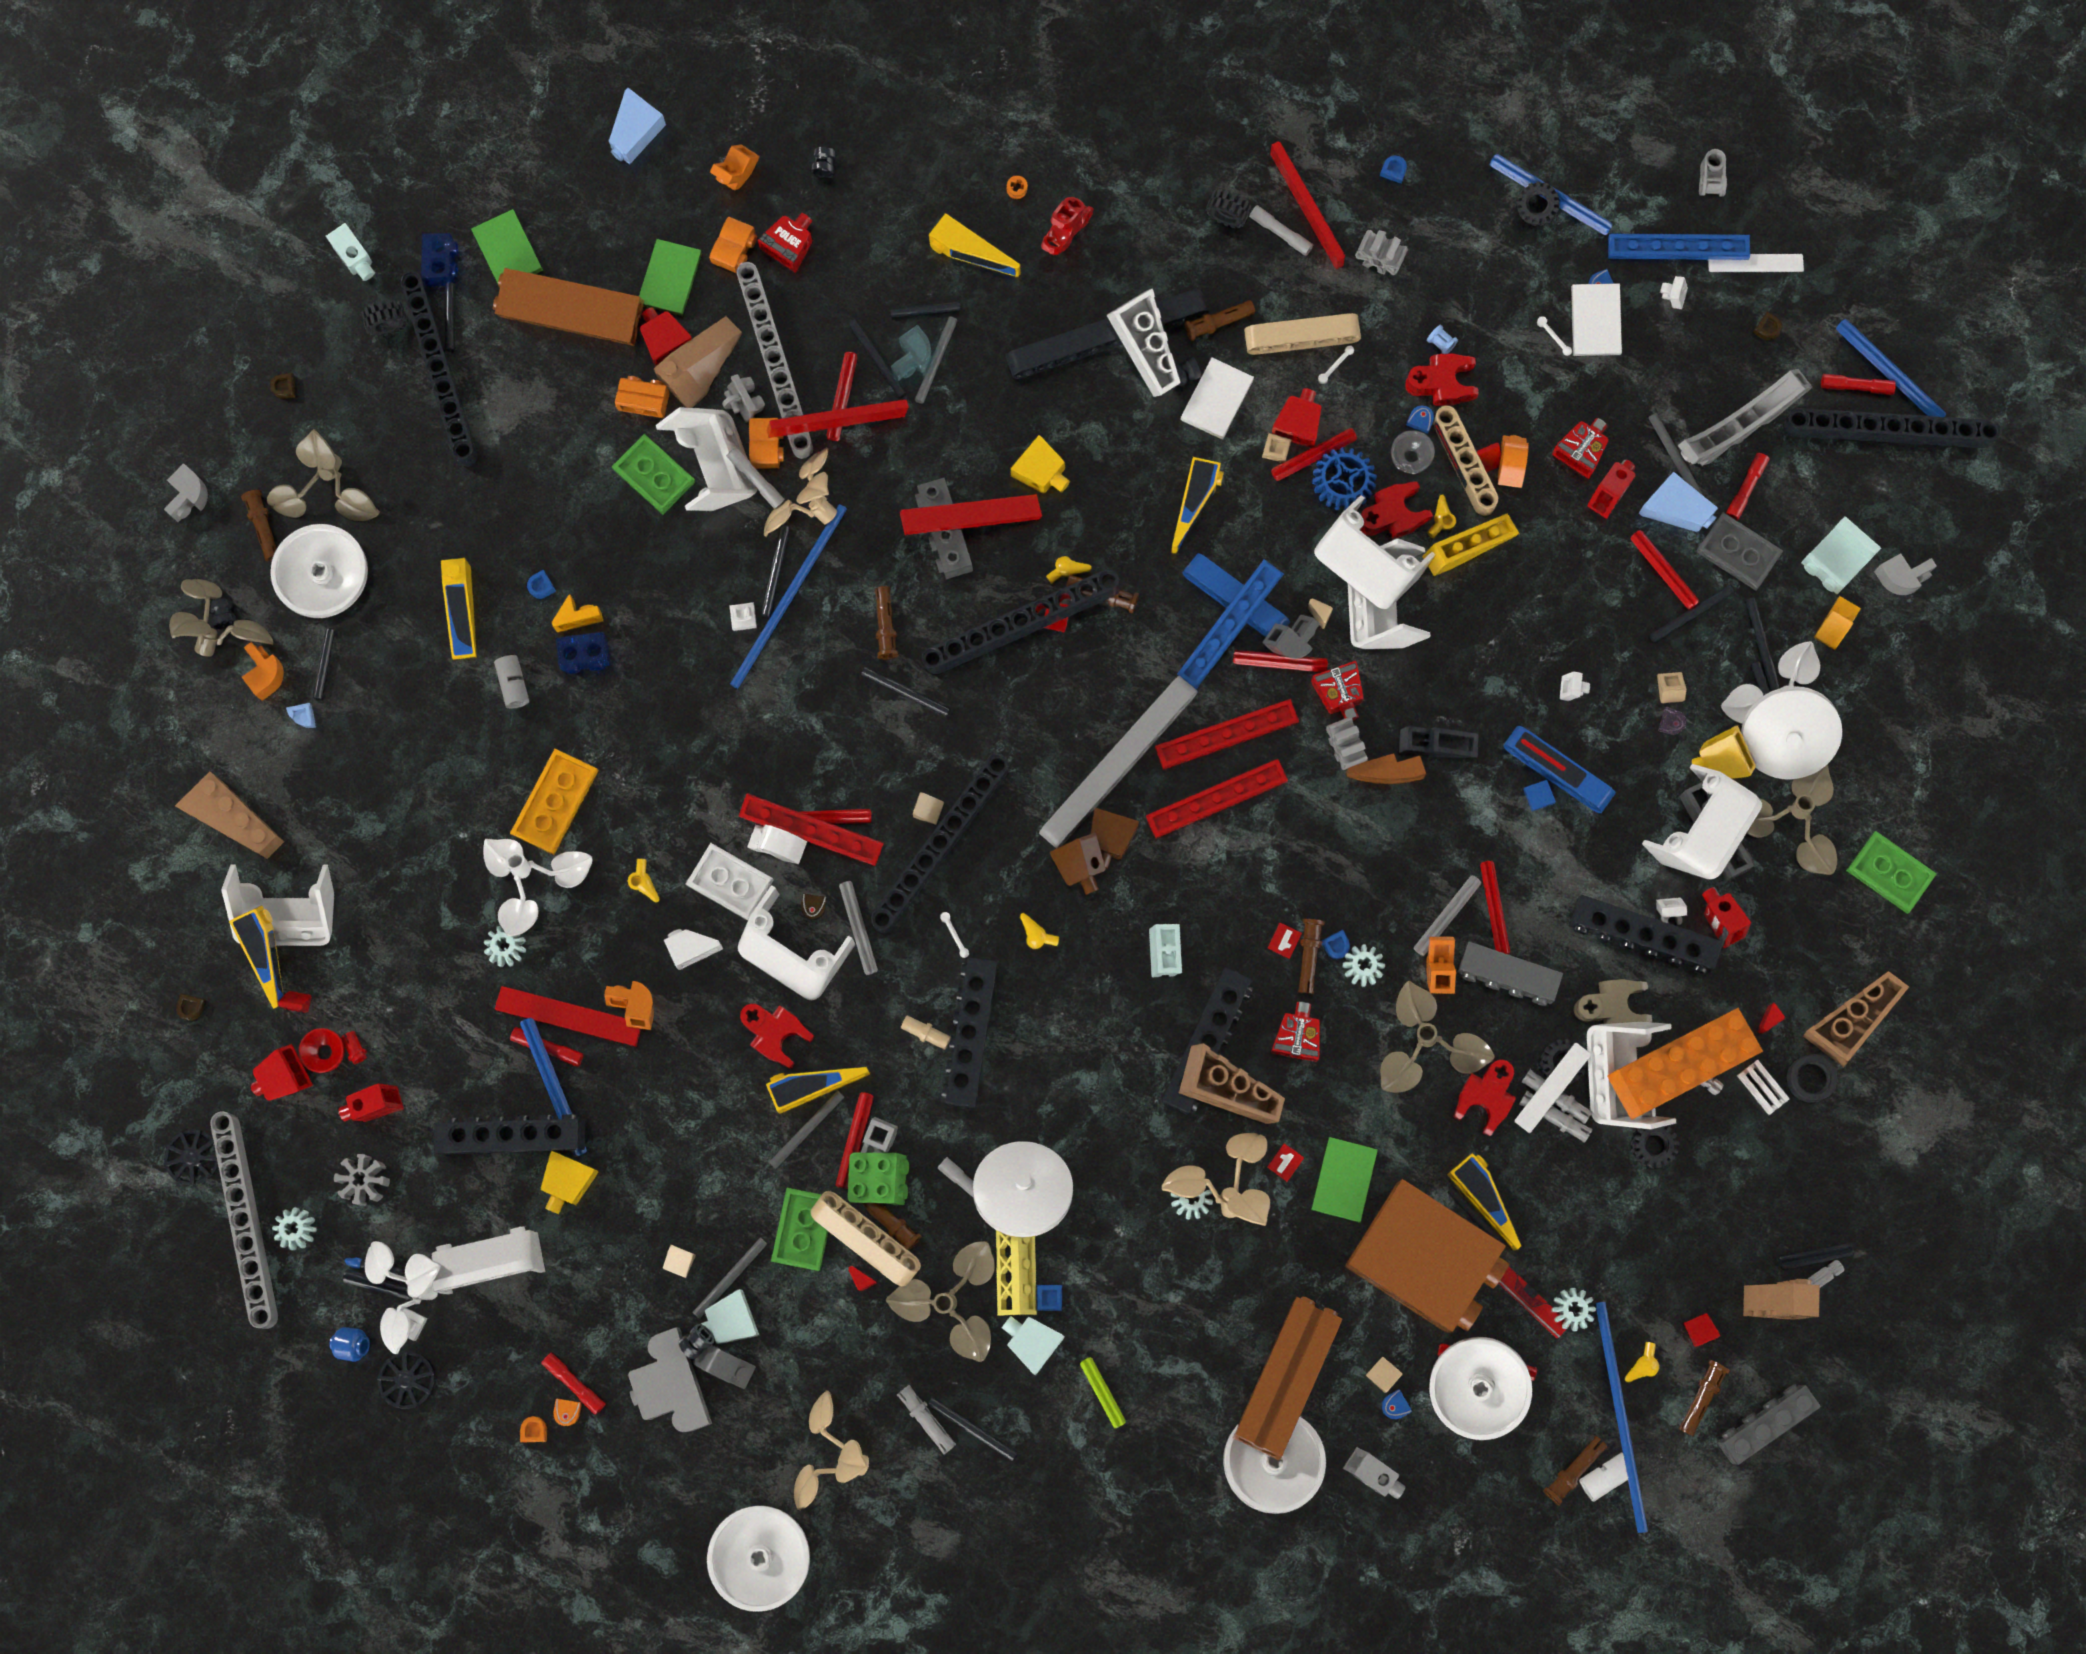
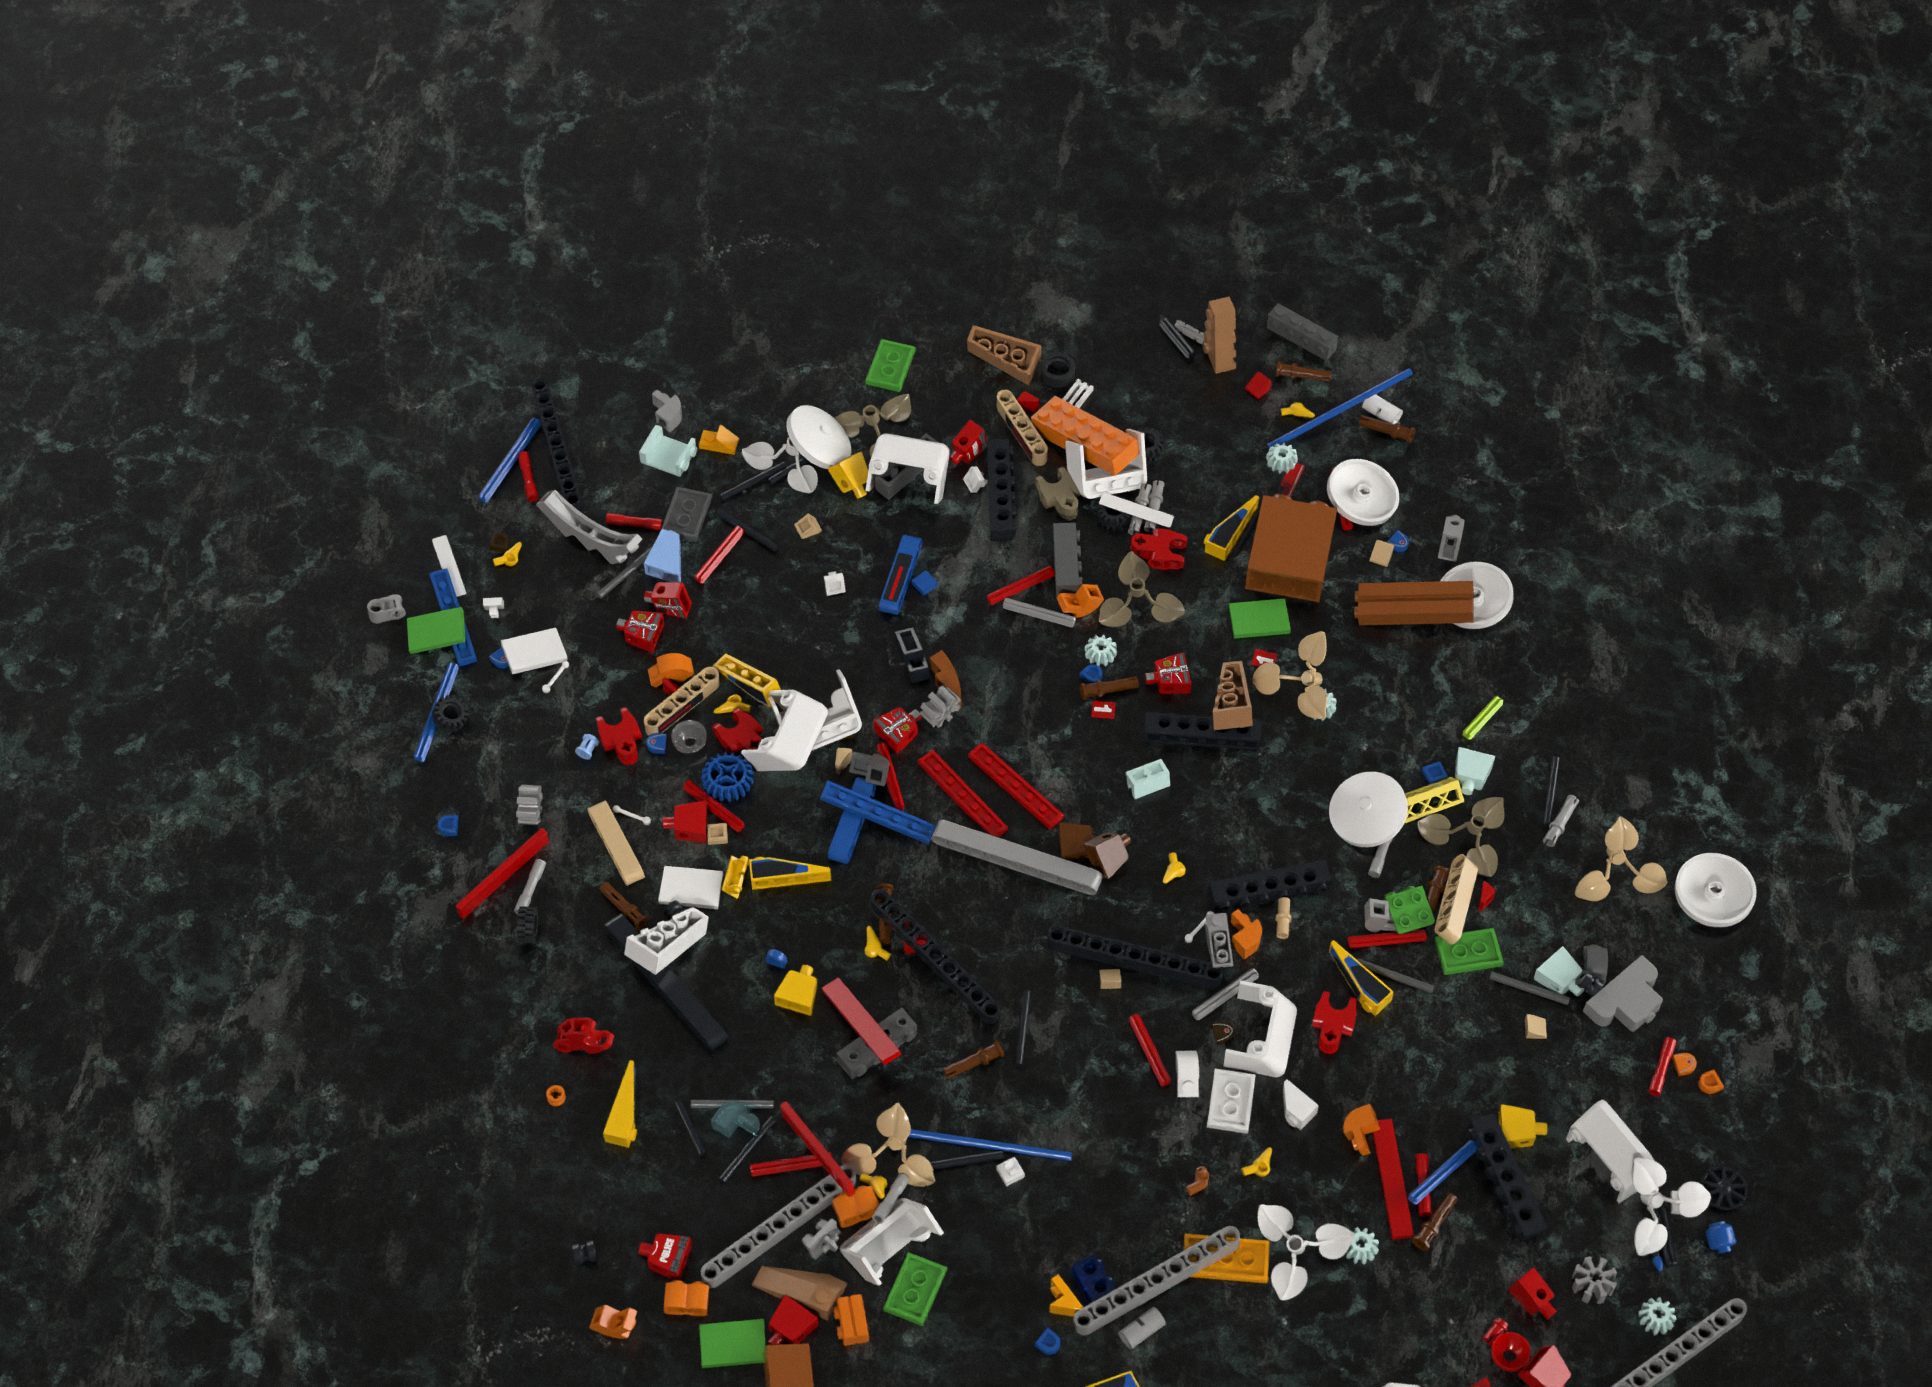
camera: 115 degrees left, 20 degrees down
(493, 1030) = (1431, 1227): none -> reddish brown pin
(555, 725) = (1153, 1289): none -> light grey beam
(649, 810) = (1200, 1183): none -> dark orange arm
(781, 473) = (877, 1182): none -> yellow animal
(811, 829) = (1164, 1052): red tile -> none
(916, 941) = (1218, 940): none -> light grey slope
(917, 985) = (1249, 934): none -> orange brick
(1090, 458) = (776, 958): none -> blue tile
(1210, 446) = (735, 876): none -> yellow hinge
(1662, 220) = (436, 630): none -> bright green tile
(1672, 721) = (834, 519): clear purple tile -> none
(1744, 332) = (510, 557): none -> yellow animal
(1744, 993) = (1022, 427): none -> tan beam

